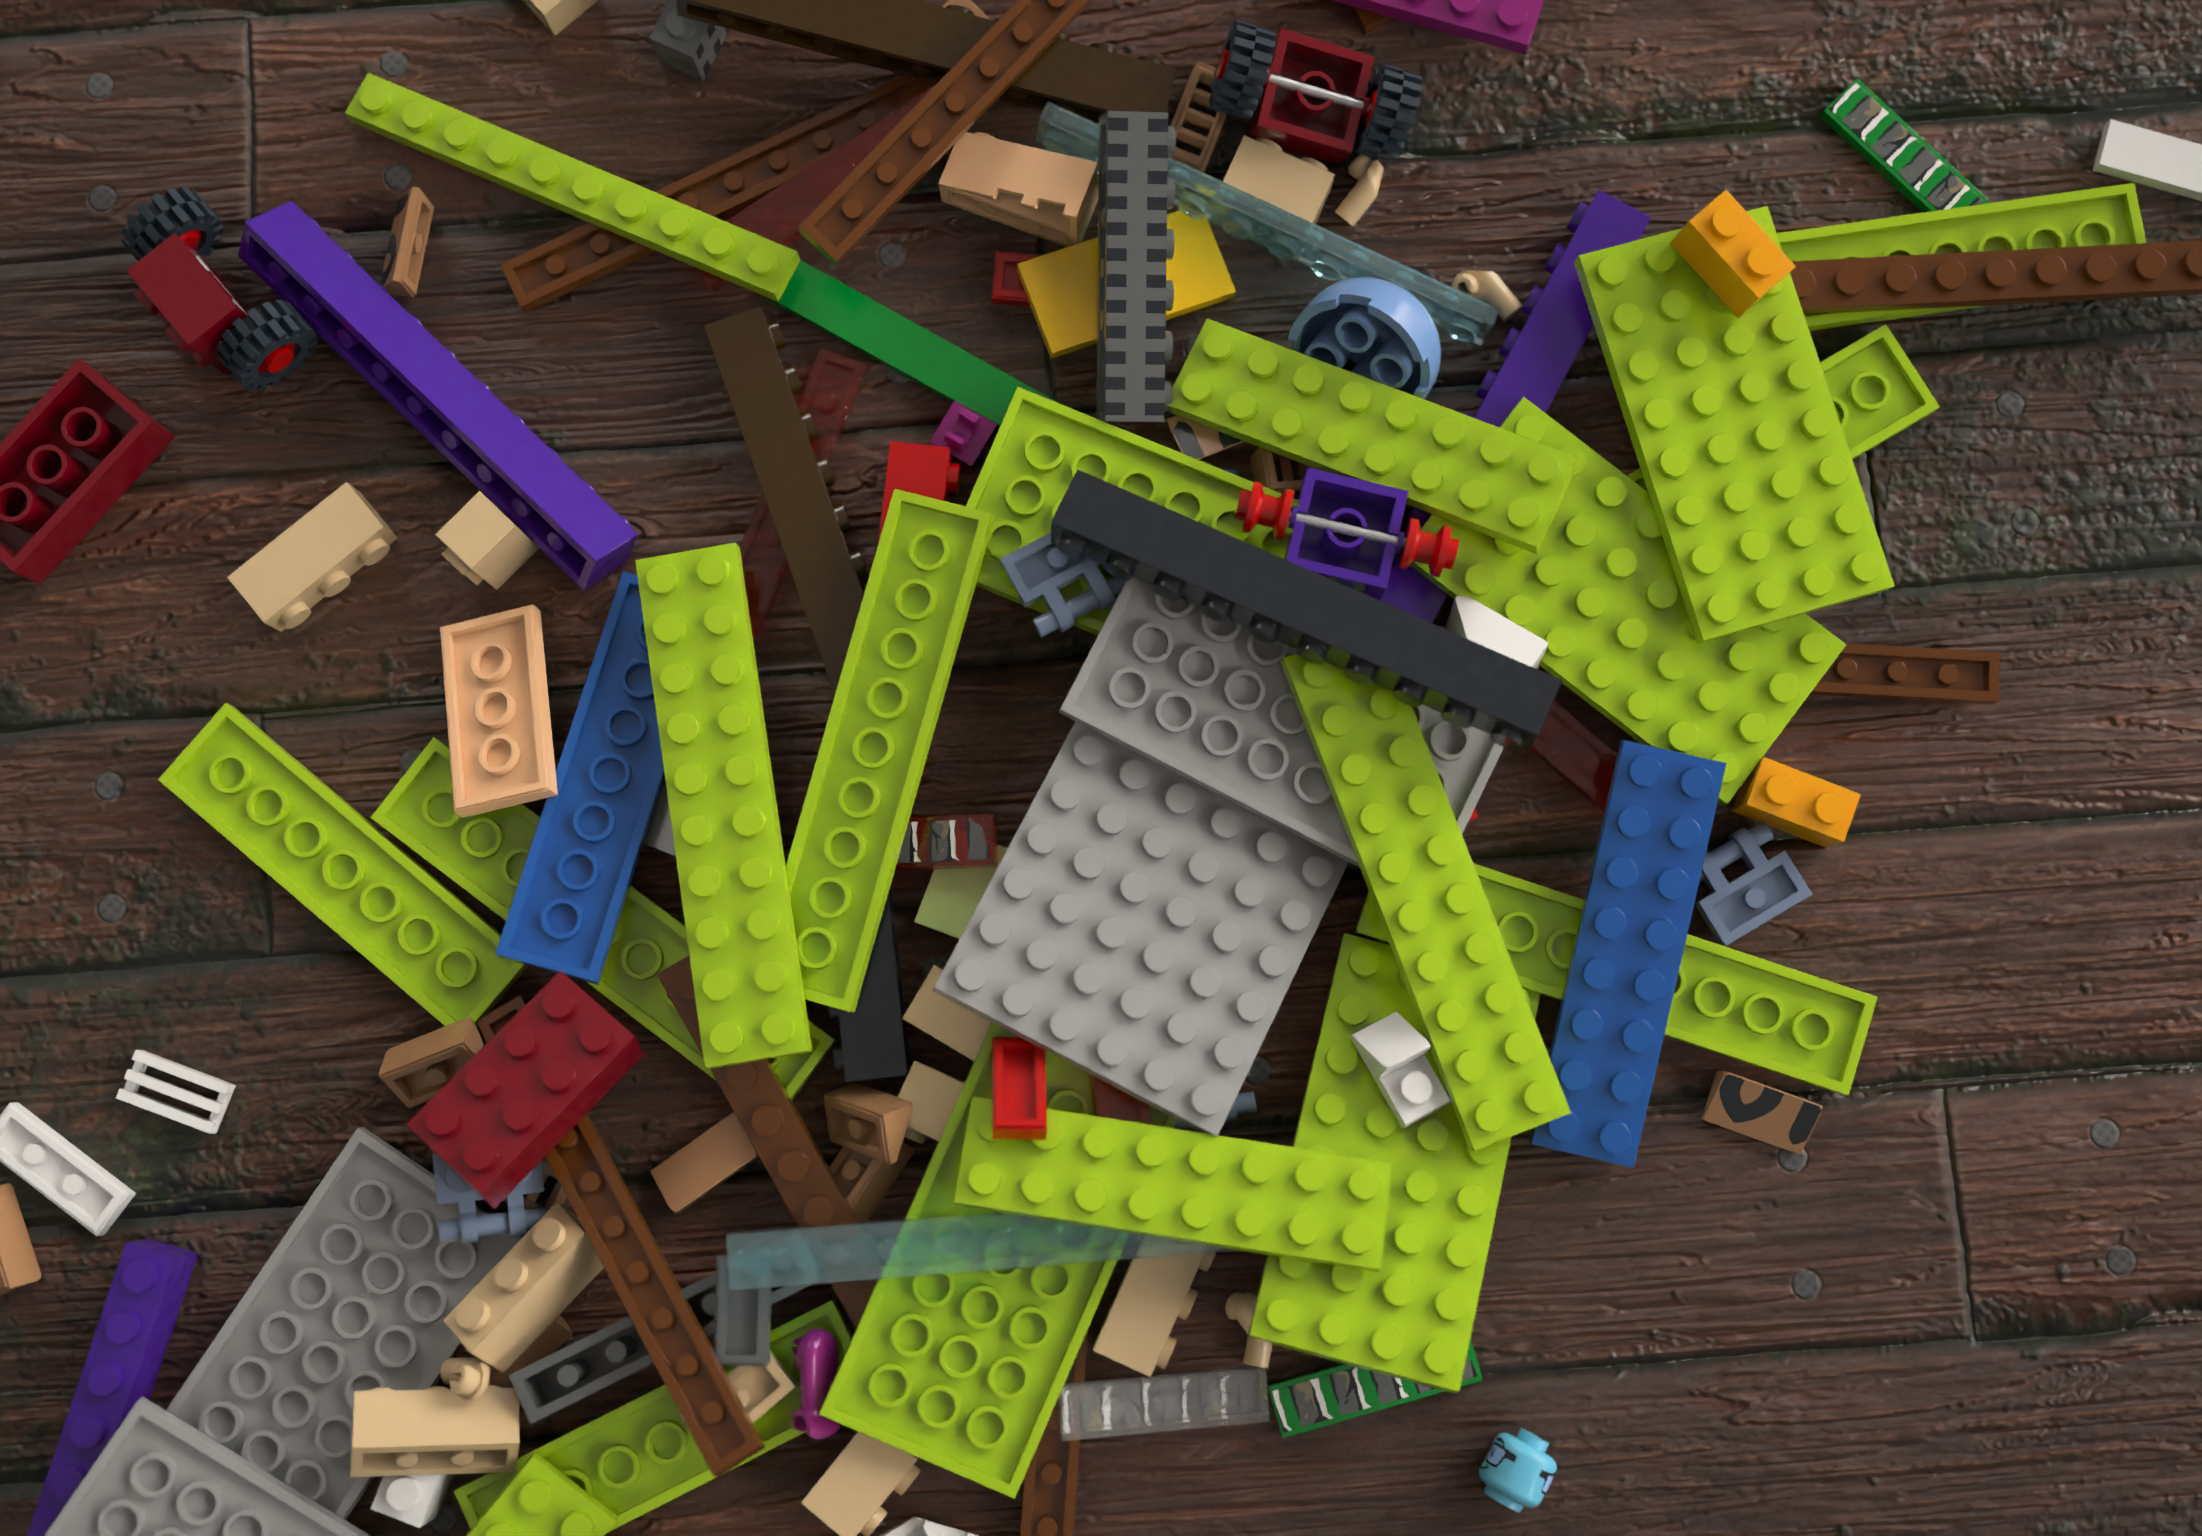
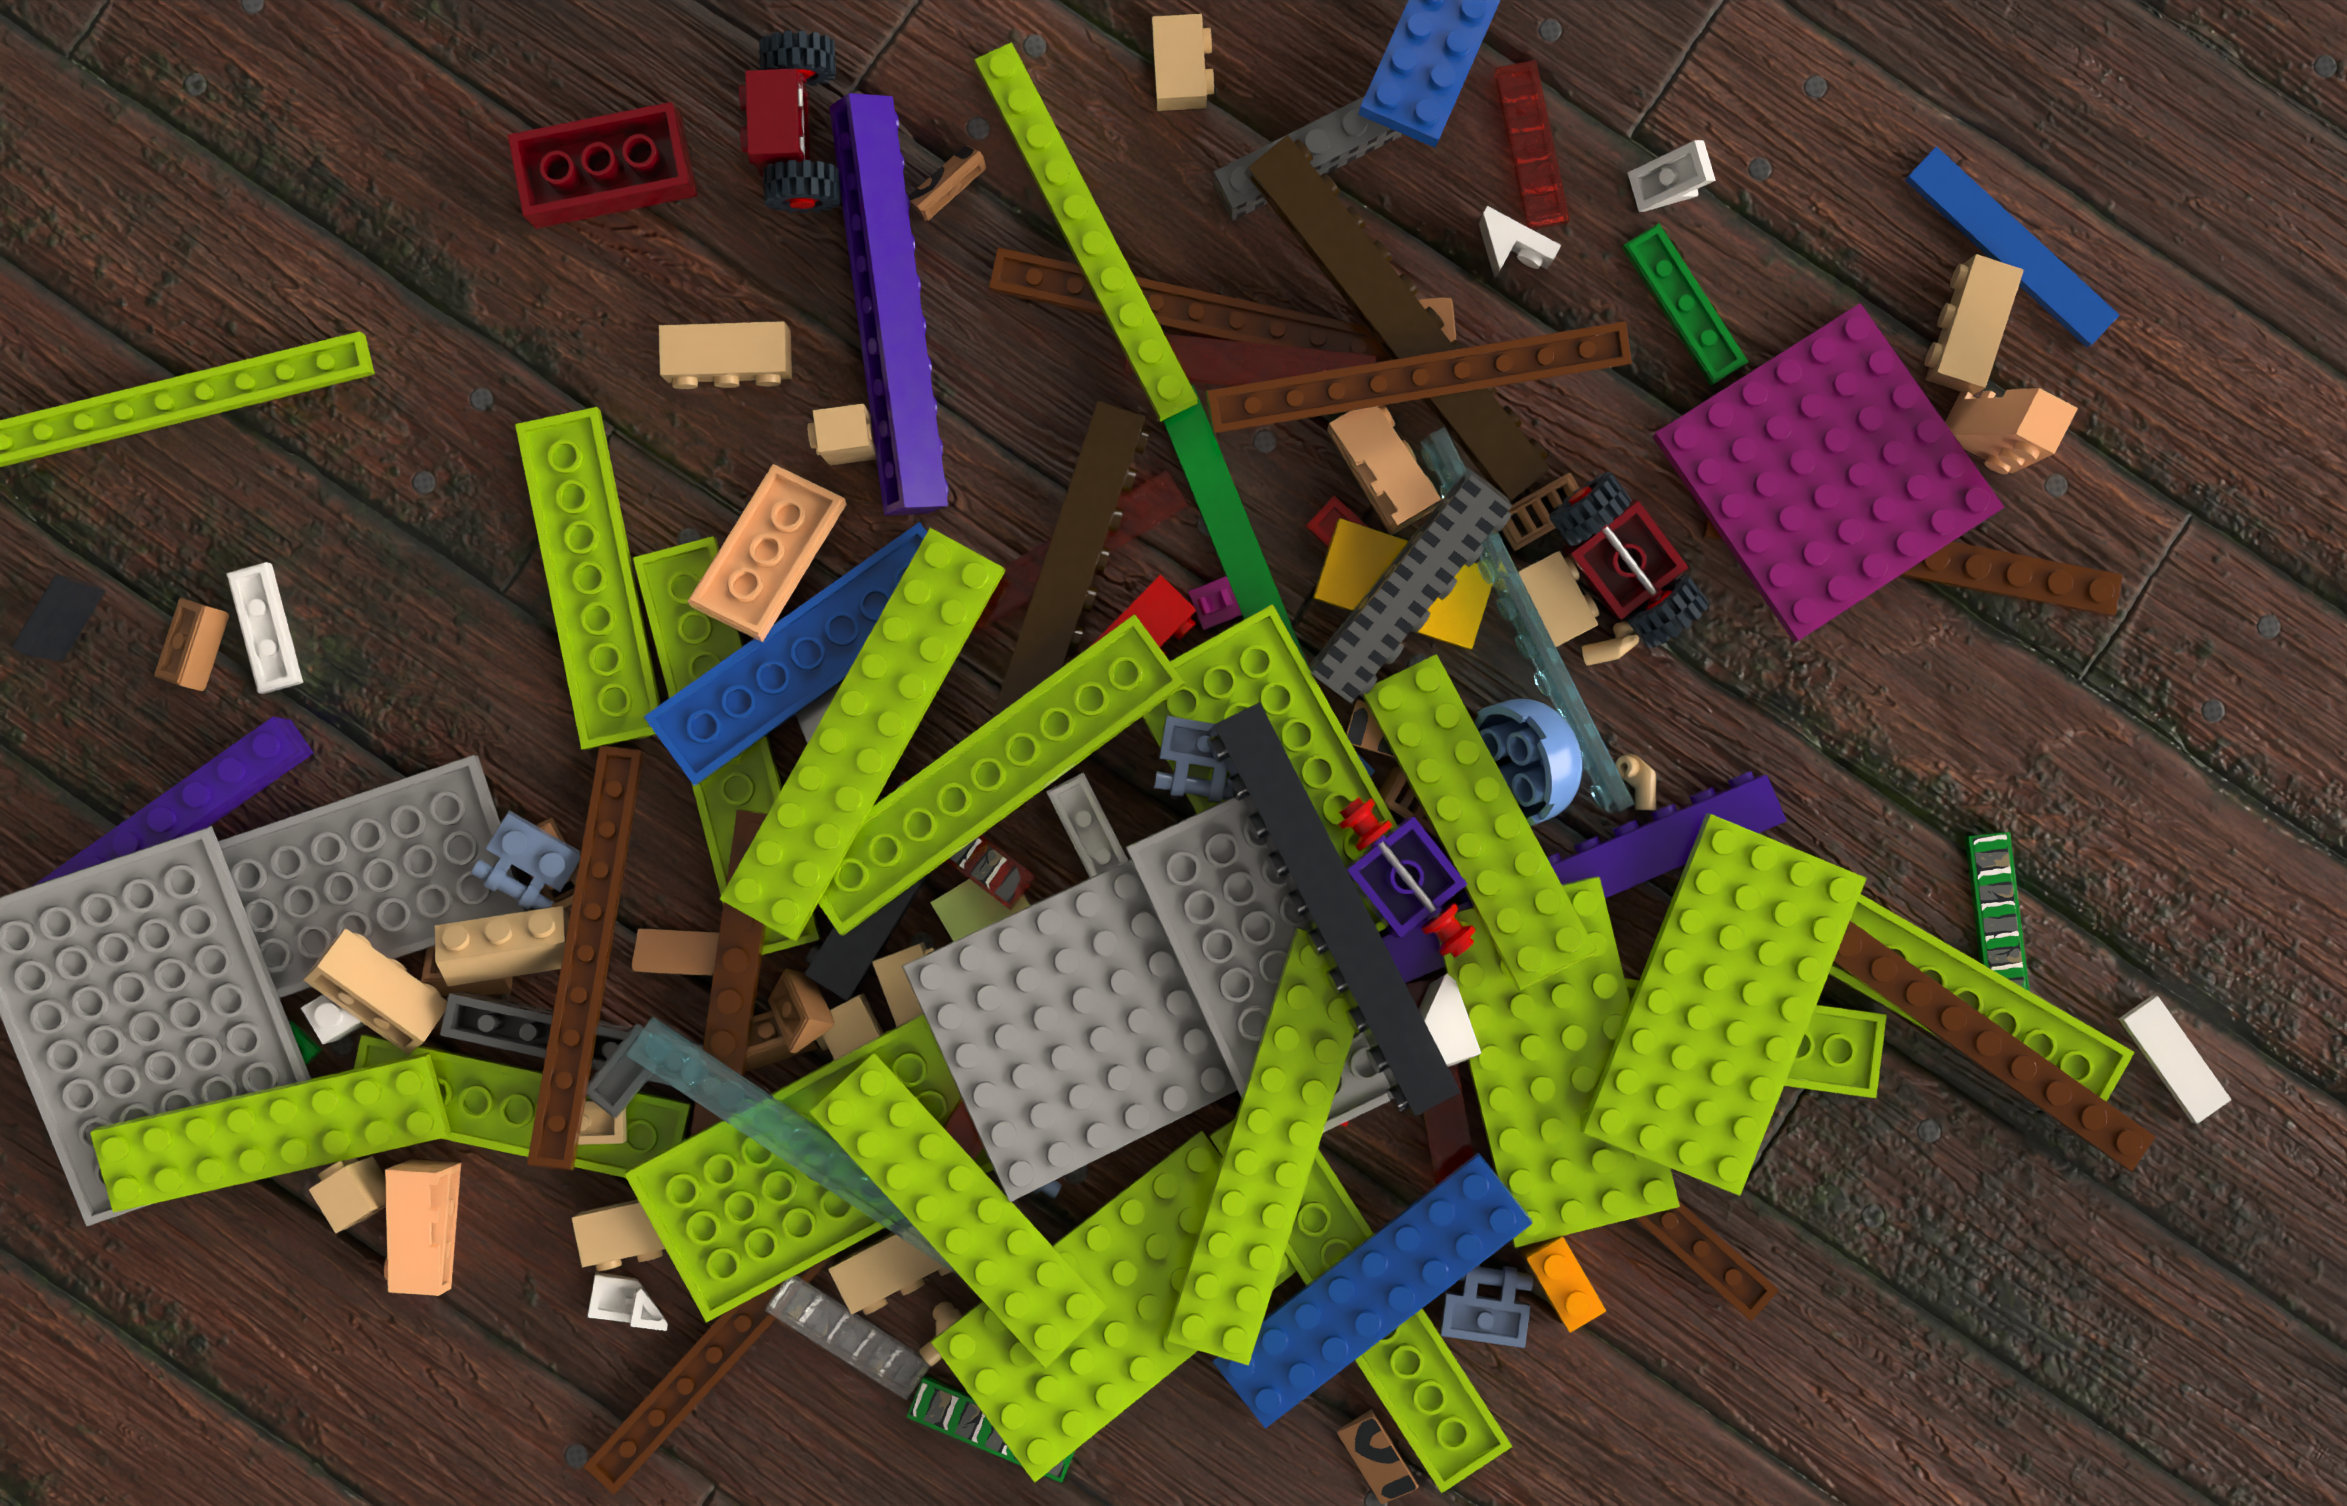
camera: 40 degrees right, 5 degrees up
(137, 1077) = (358, 608): white tile -> none
(429, 1062) = (554, 752): medium nougat slope -> none
(466, 1376) = (426, 972): tan arm -> none
(526, 1089) = (597, 821): dark red brick -> none
(818, 1363) = (649, 1138): magenta piece -> none
(1004, 732) = (1087, 825): none -> white tile
(1018, 1090) = (906, 1072): red tile -> none
(1400, 1069) = (1164, 1249): white slope -> none
(1732, 254) = (1809, 897): light orange brick -> none

